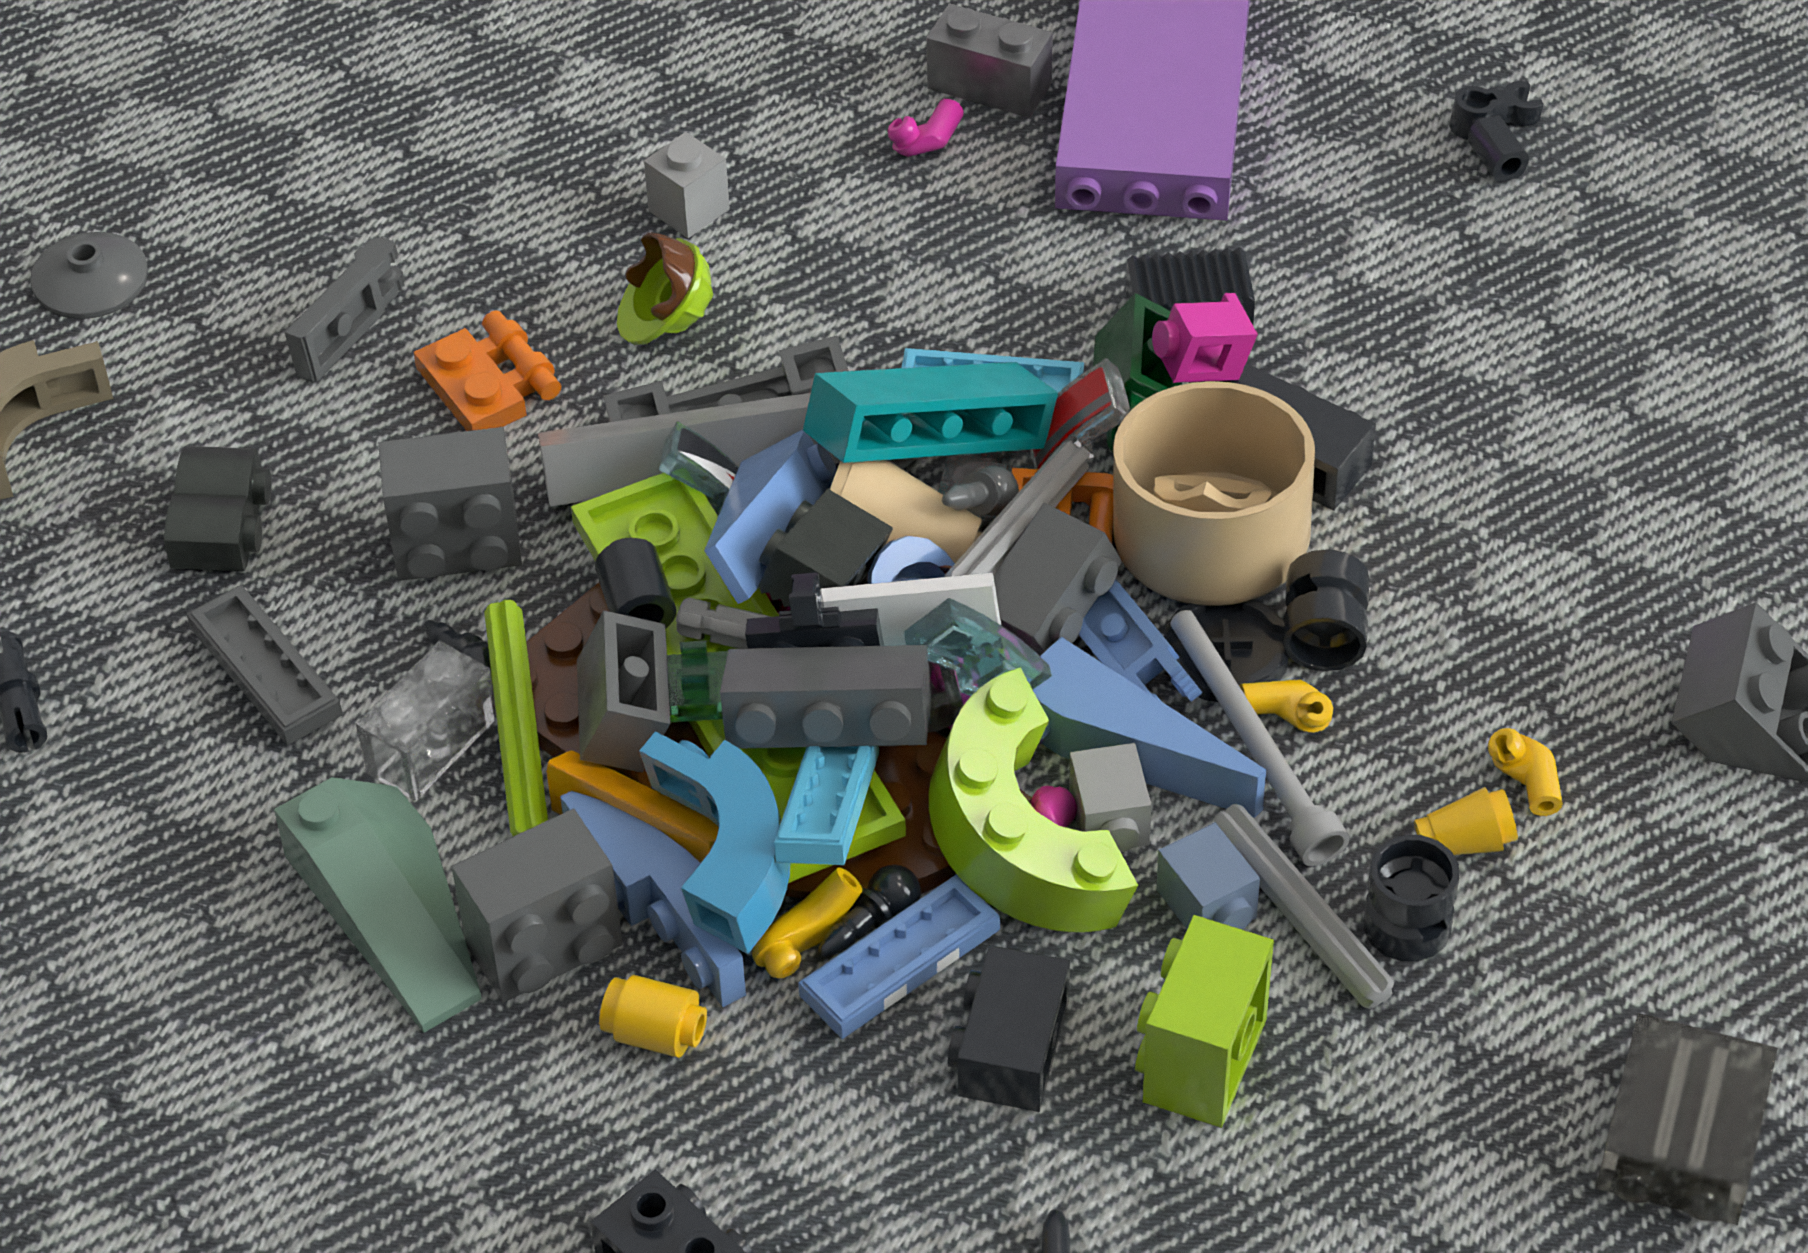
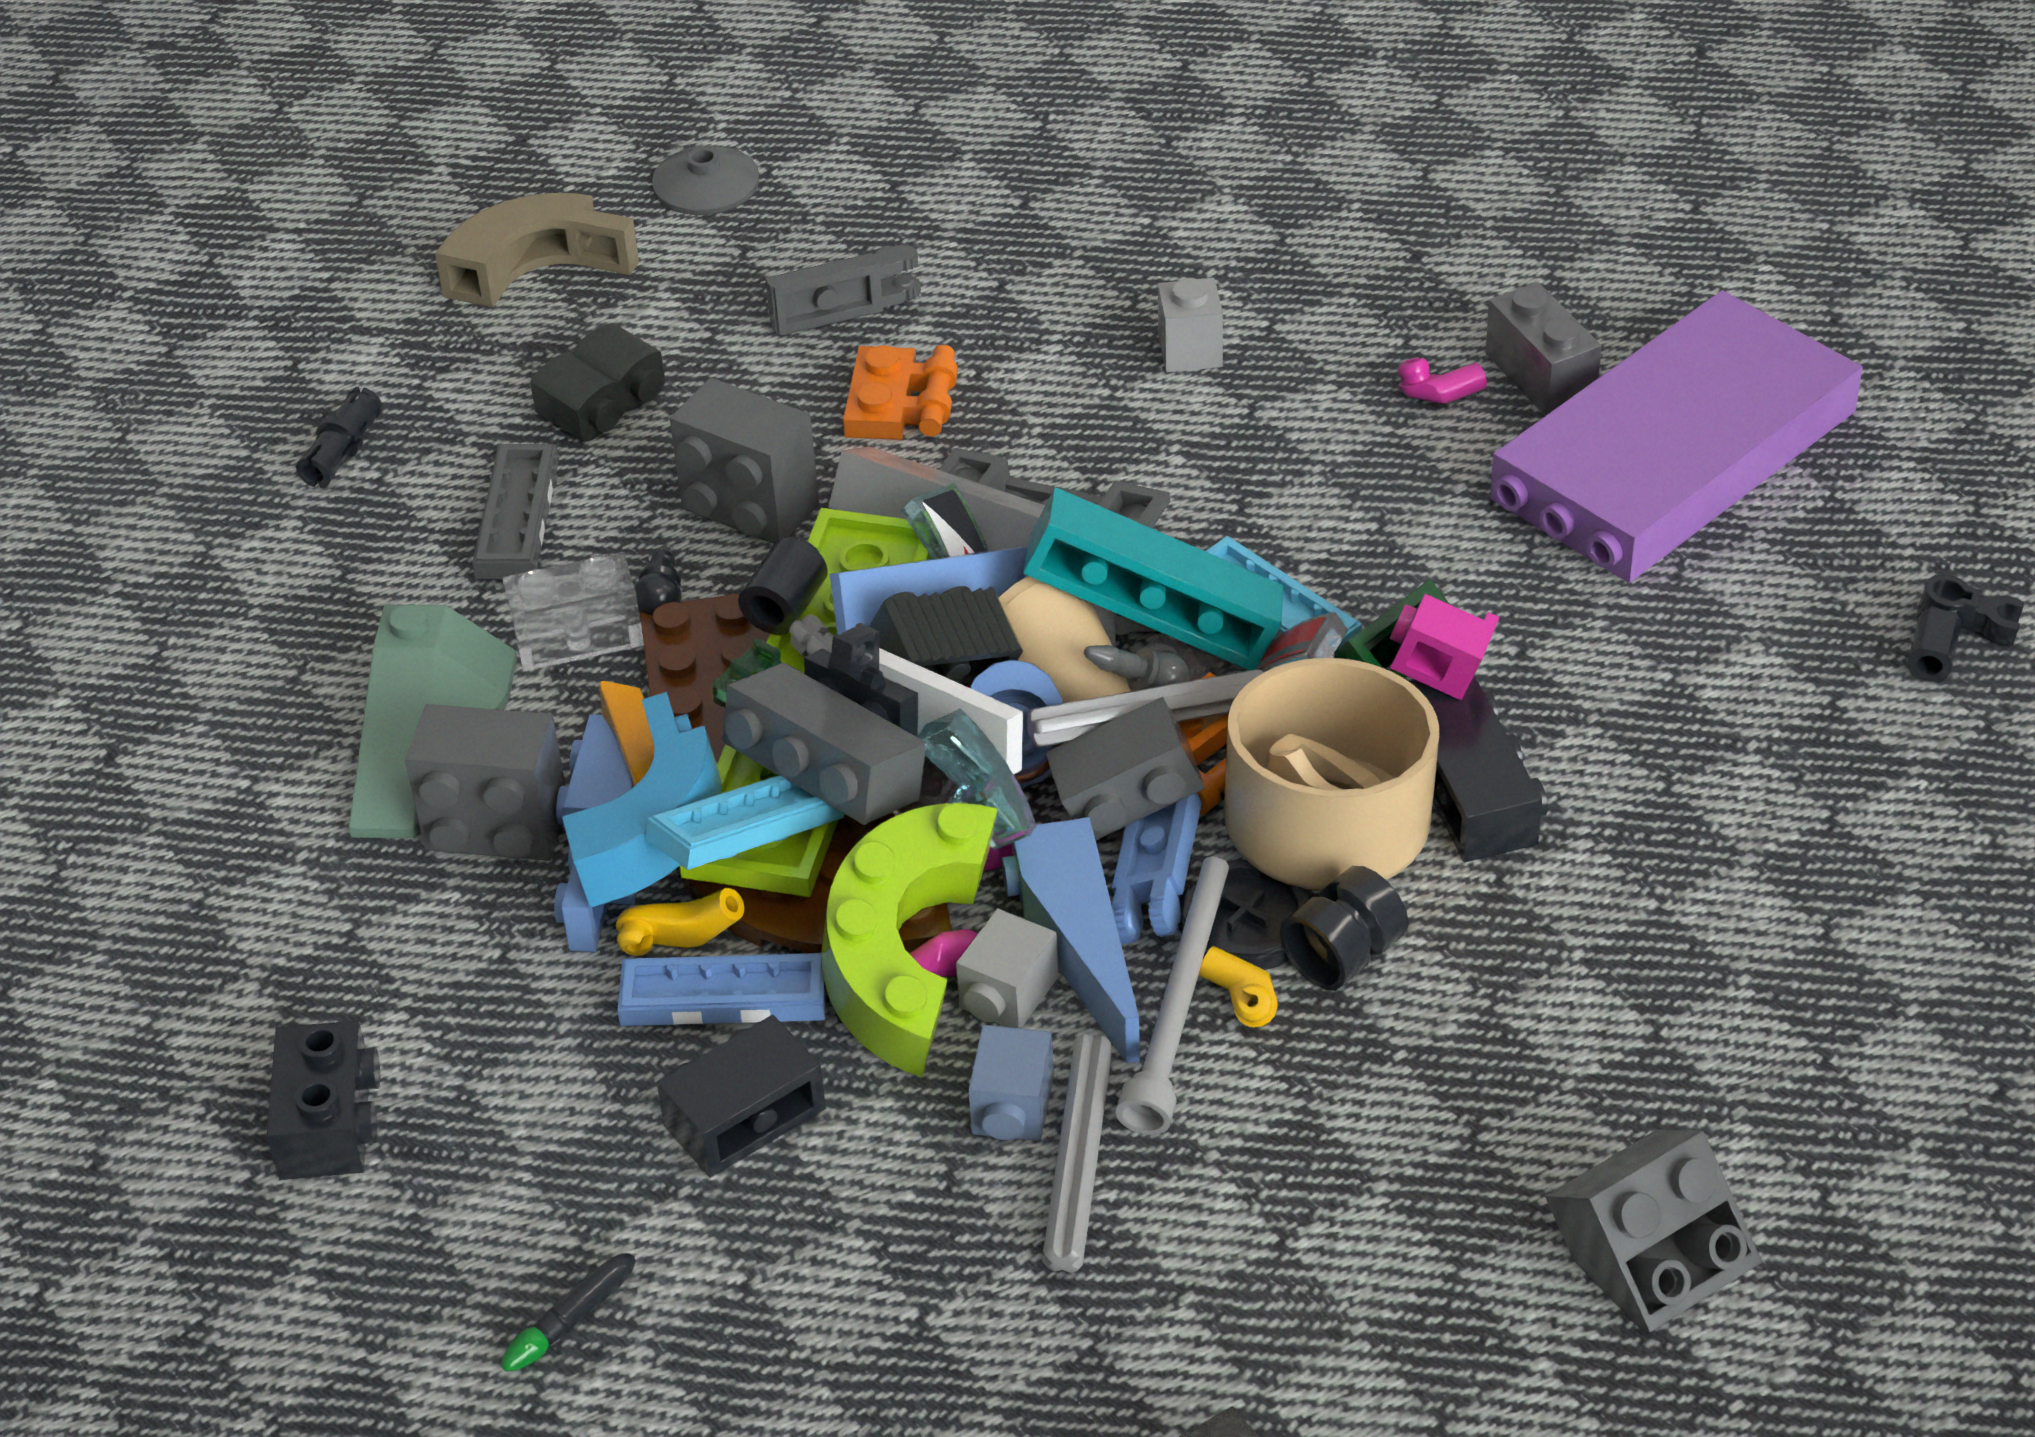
camera: 40 degrees right, 5 degrees down
(515, 716) = (632, 639): lime axle -> none
(622, 690) = (699, 652): dark grey brick -> none
(653, 1015) = (497, 917): yellow brick -> none
(664, 290) = (1093, 396): lime piece -> none
(887, 894) = (764, 936): black bar -> none
(1191, 278) = (1535, 622): black brick -> none
(1204, 1019) = (873, 1178): lime brick -> none
(1411, 897) = (1156, 1195): black wheel -> none
(1472, 824) = (1284, 1174): yellow cone -> none
(1529, 764) = (1396, 1162): yellow arm -> none

